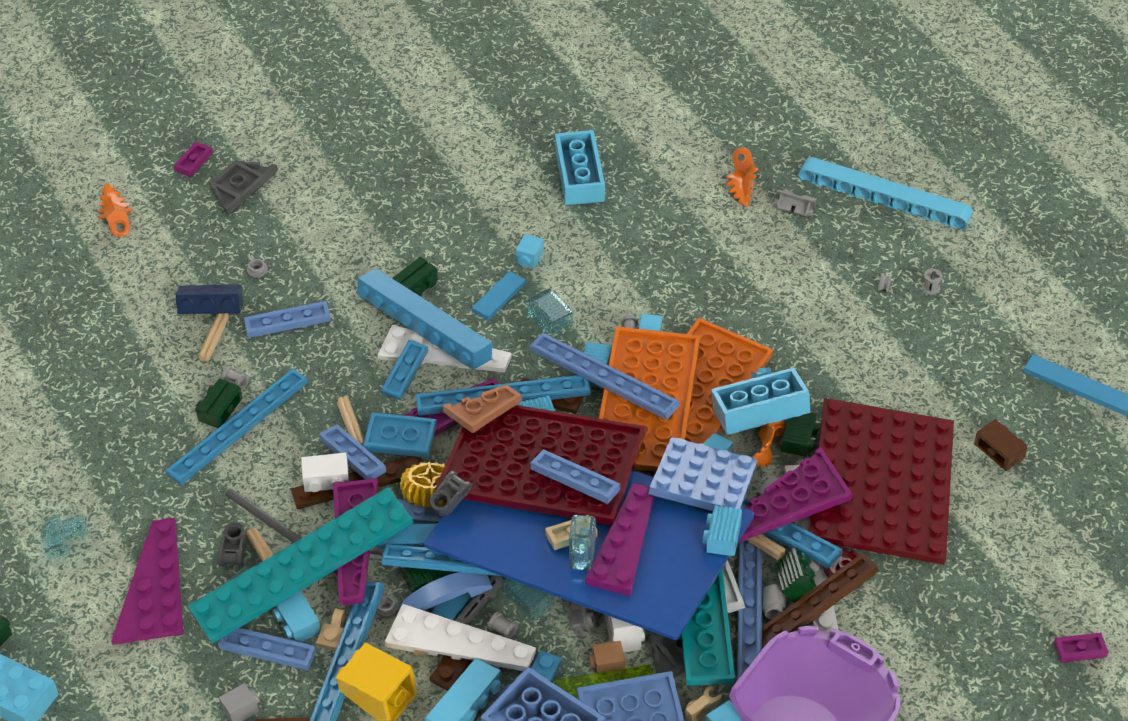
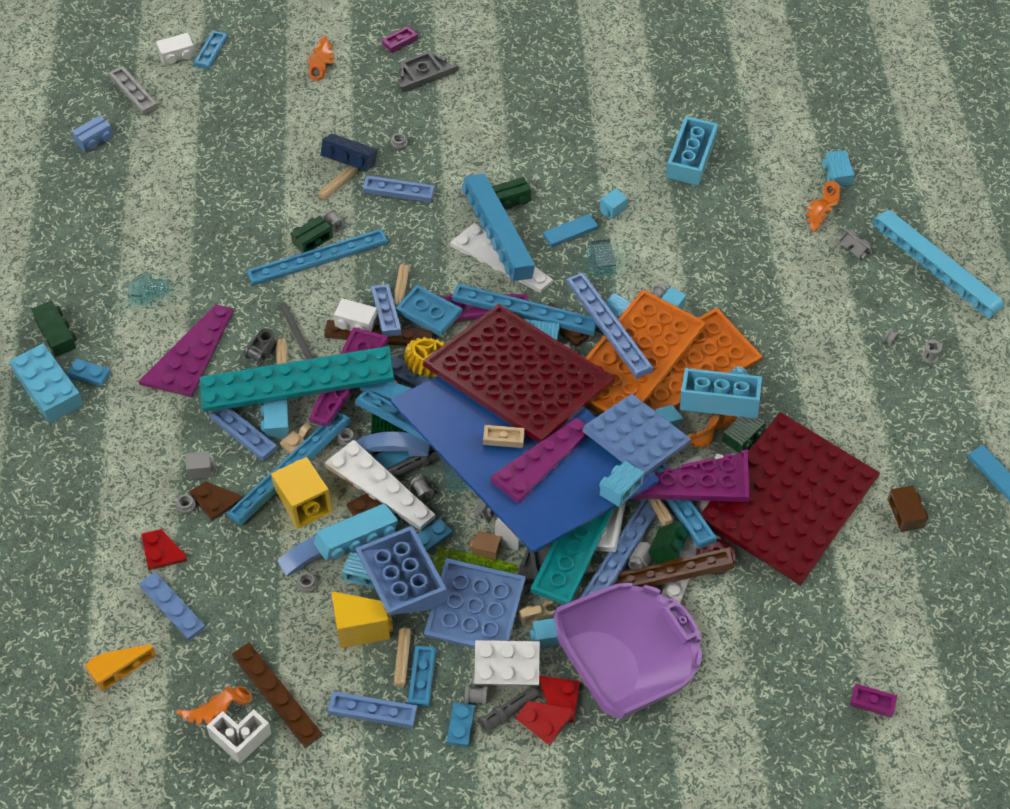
camera: 25 degrees right, 5 degrees up
(45, 654) = (88, 372): none -> dark azure plate
(404, 370) = (463, 261): dark azure tile -> none
(451, 489) = (429, 369): dark grey piece -> none
(481, 410) = (496, 314): nougat wing -> none
(575, 476) = (531, 394): medium blue plate -> none
(582, 542) = (502, 446): clear light blue brick -> none
(735, 133) = (839, 168): none -> medium azure brick

